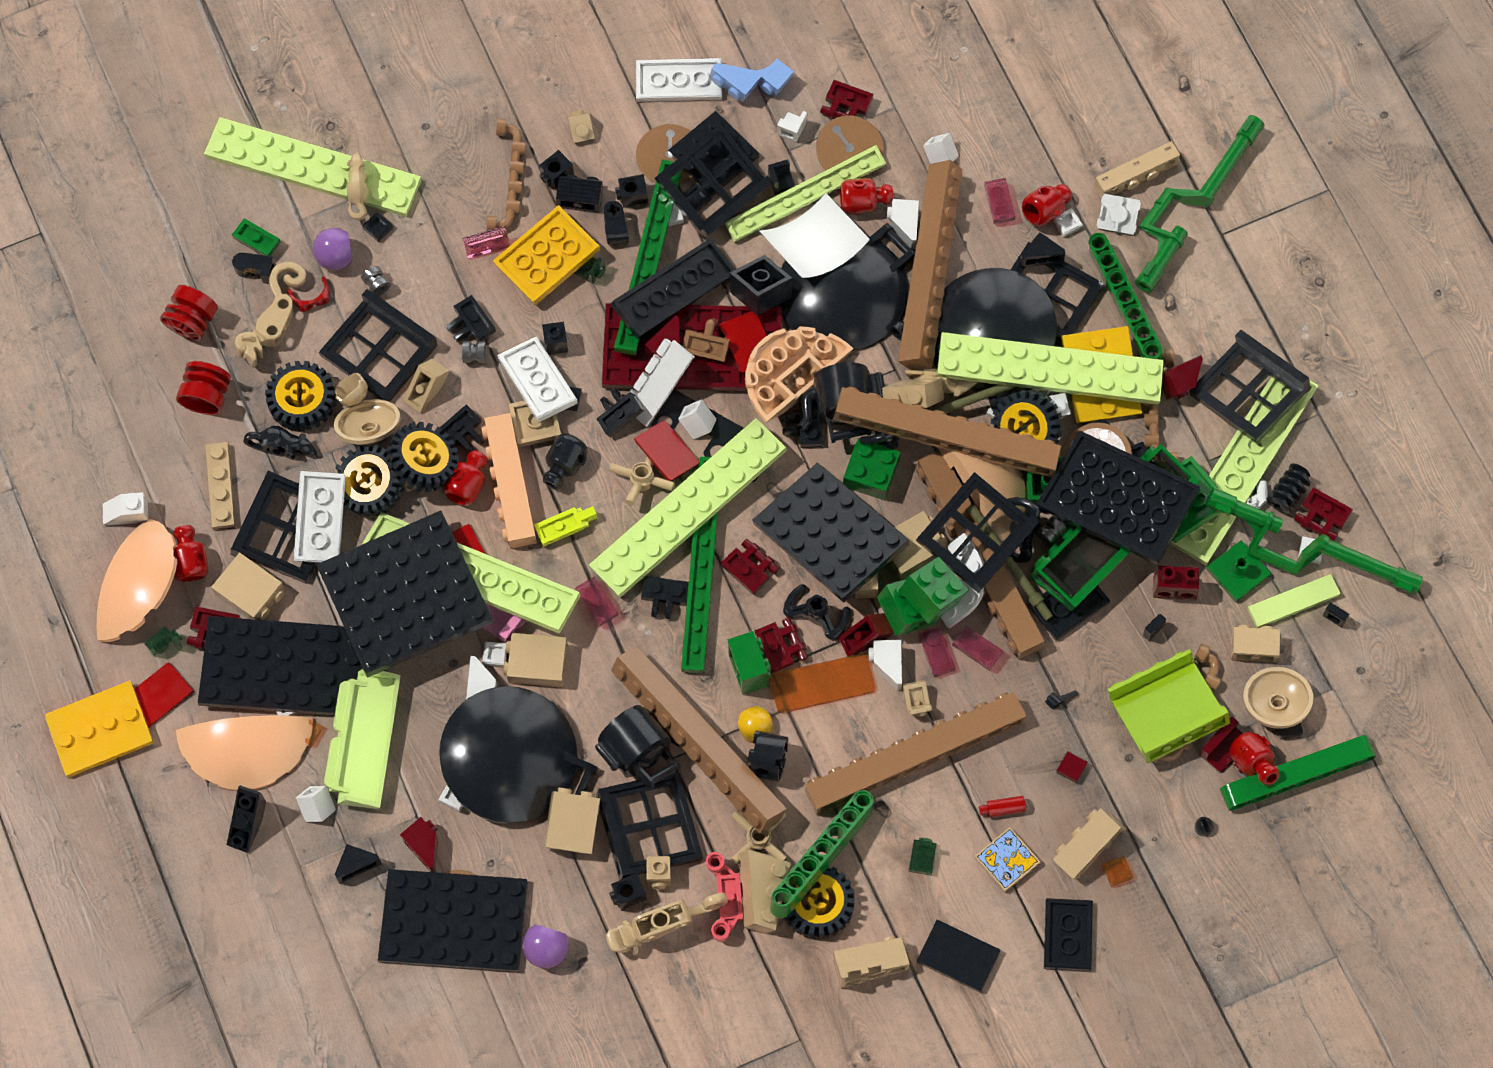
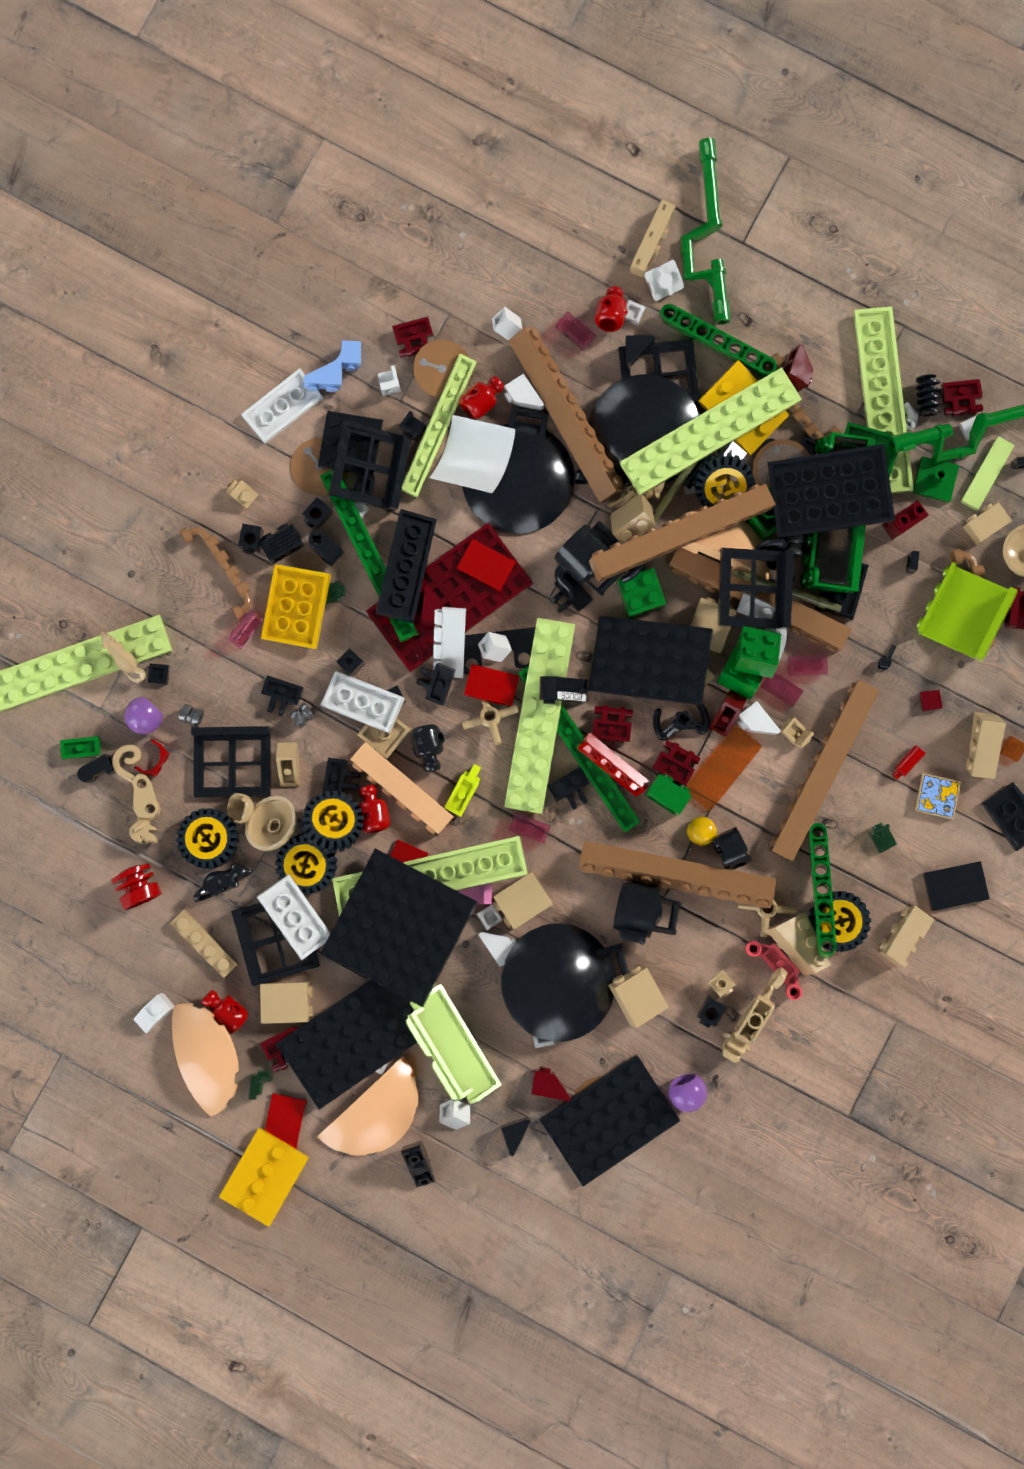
camera: 35 degrees left, 15 degrees up
(189, 312) = (80, 840): red wheel -> none
(617, 832) = (673, 978): black window -> none
(705, 343) = (460, 589): medium nougat plate -> none
(719, 597) = (613, 764): none -> fence
(728, 496) = (562, 689): none -> black door
(760, 285) = (464, 518): black brick -> none
(785, 367) = (529, 564): light nougat brick -> none
(1271, 365) = (850, 315): black window -> none

